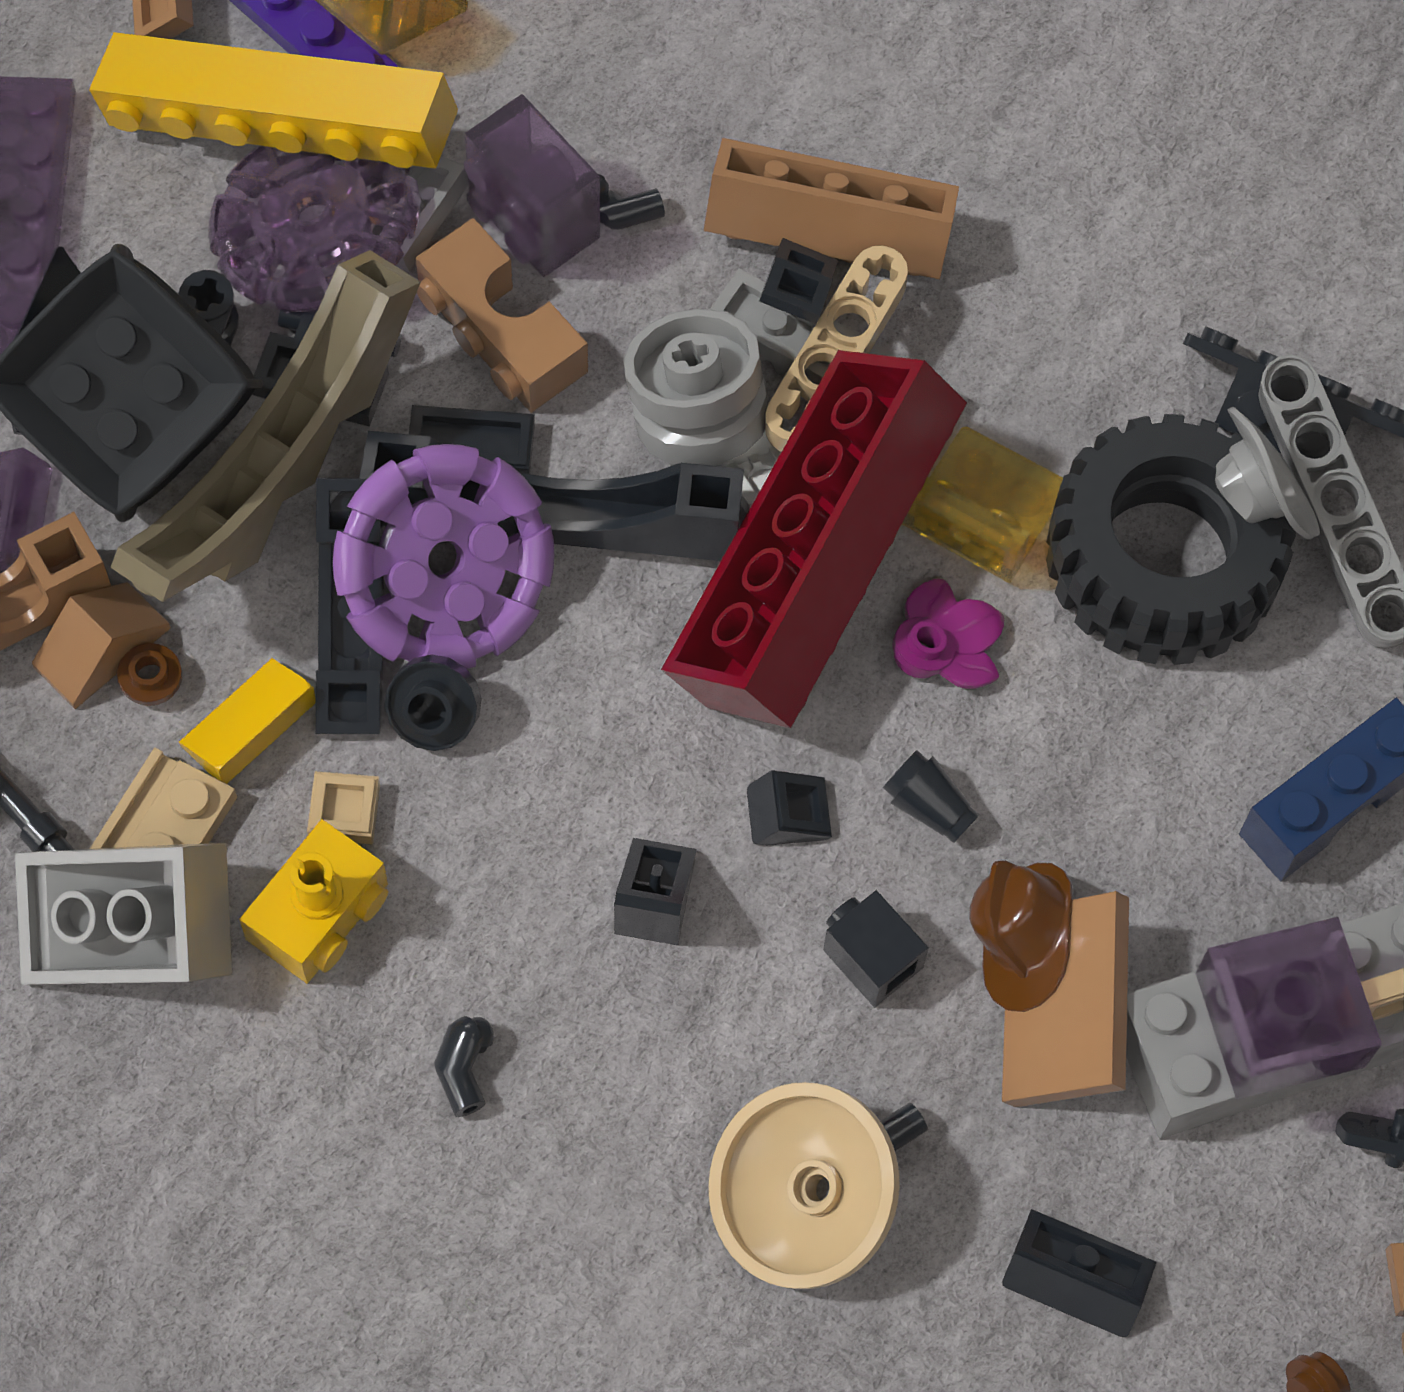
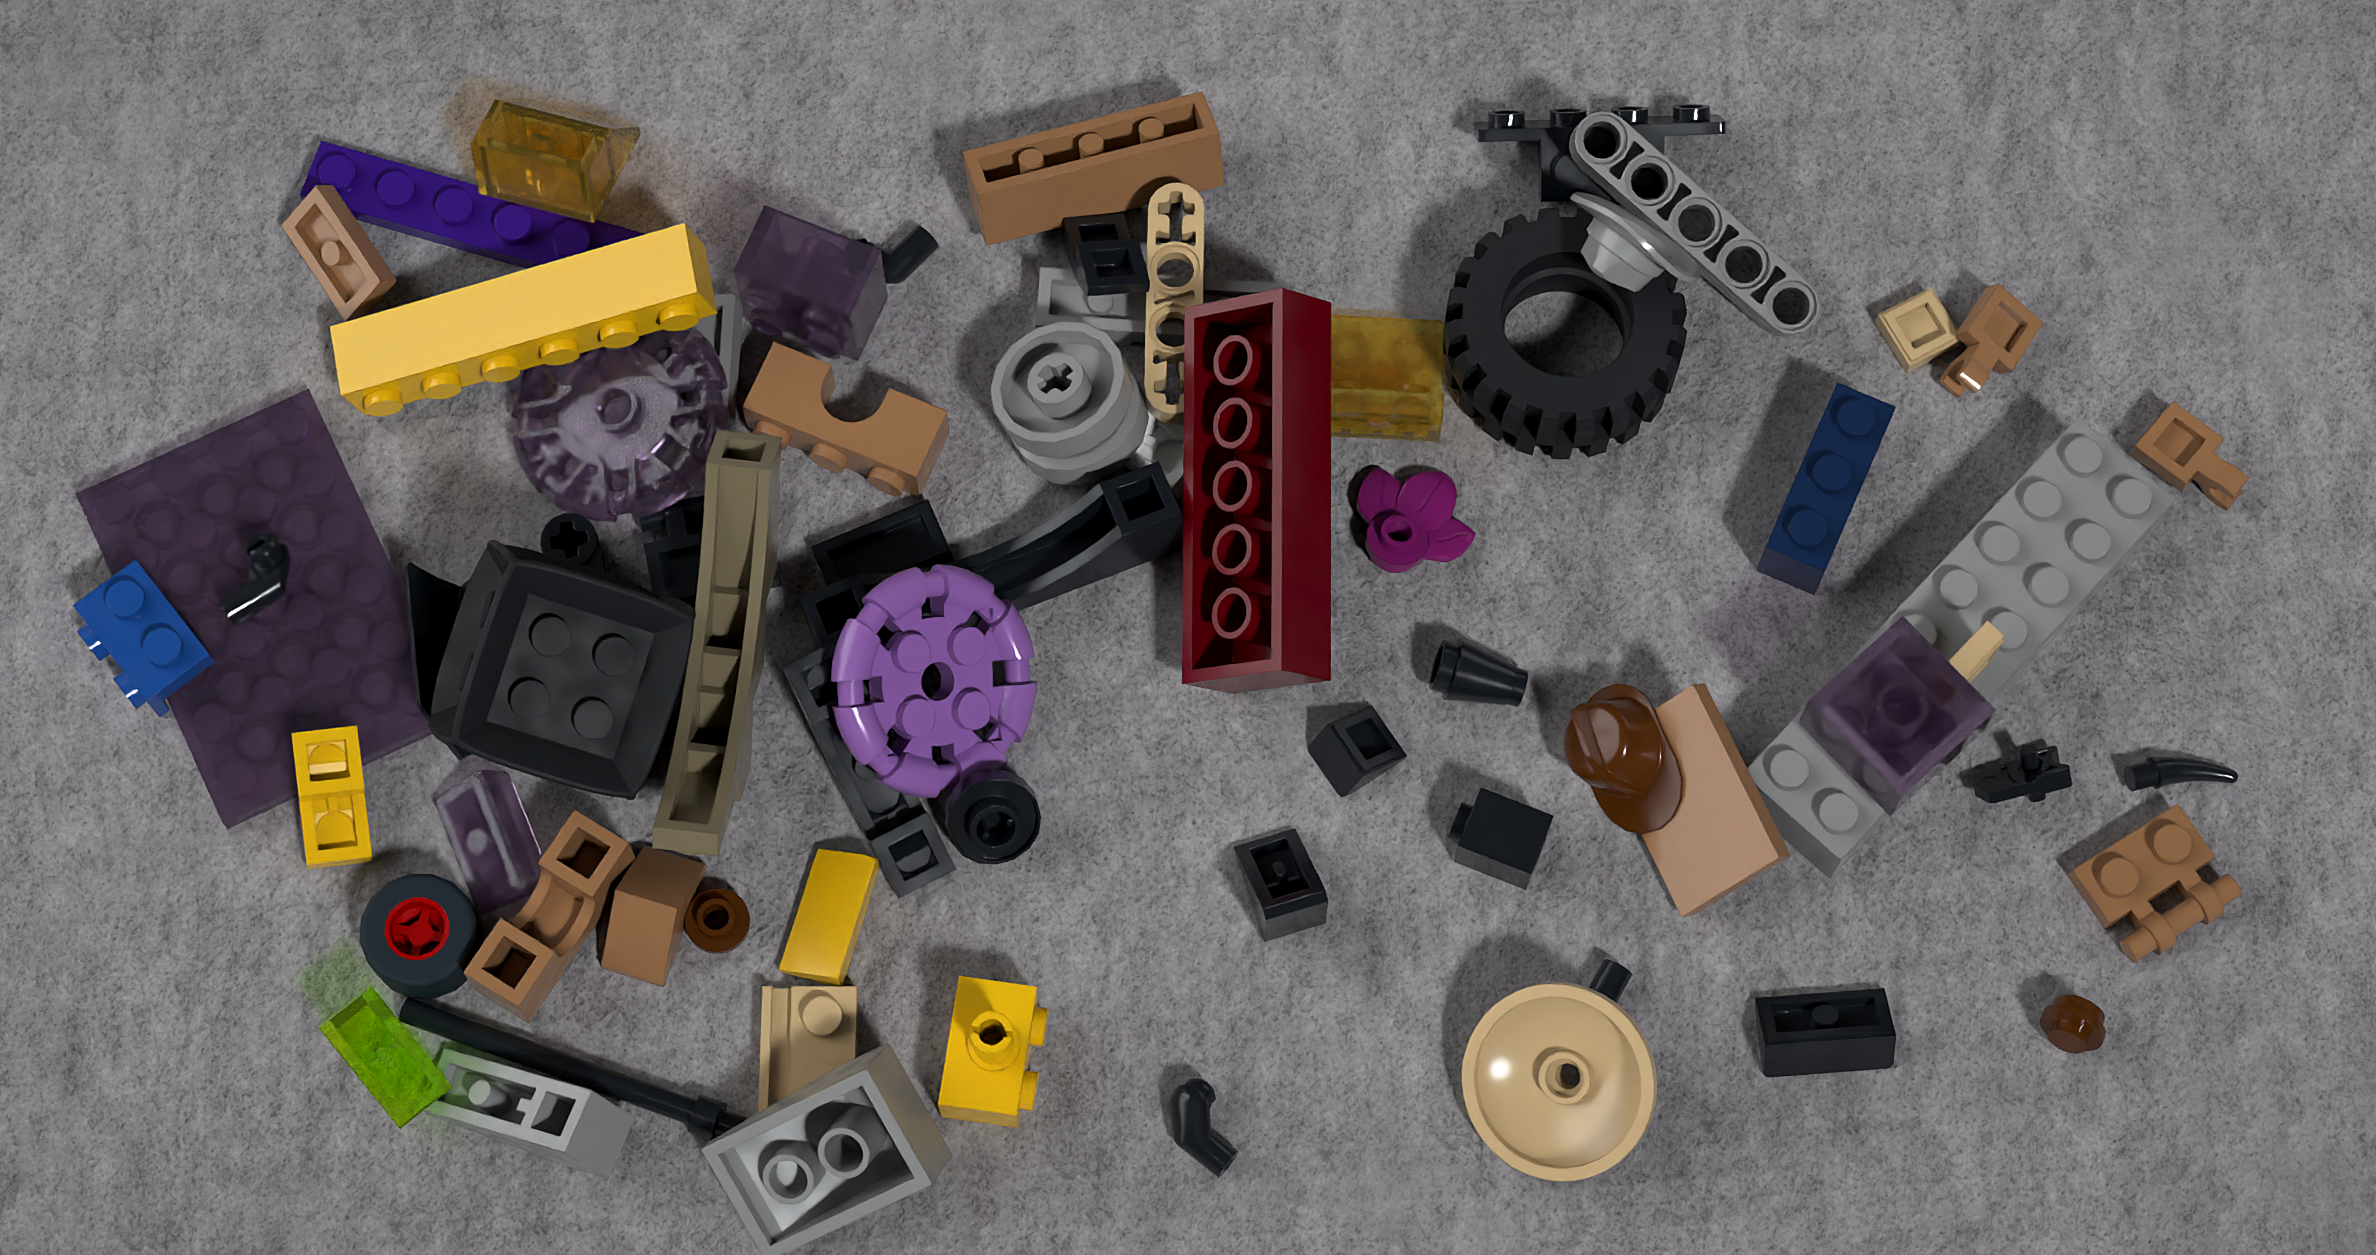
camera: 25 degrees left, 5 degrees up
(345, 803) = (961, 949): tan tile -> none

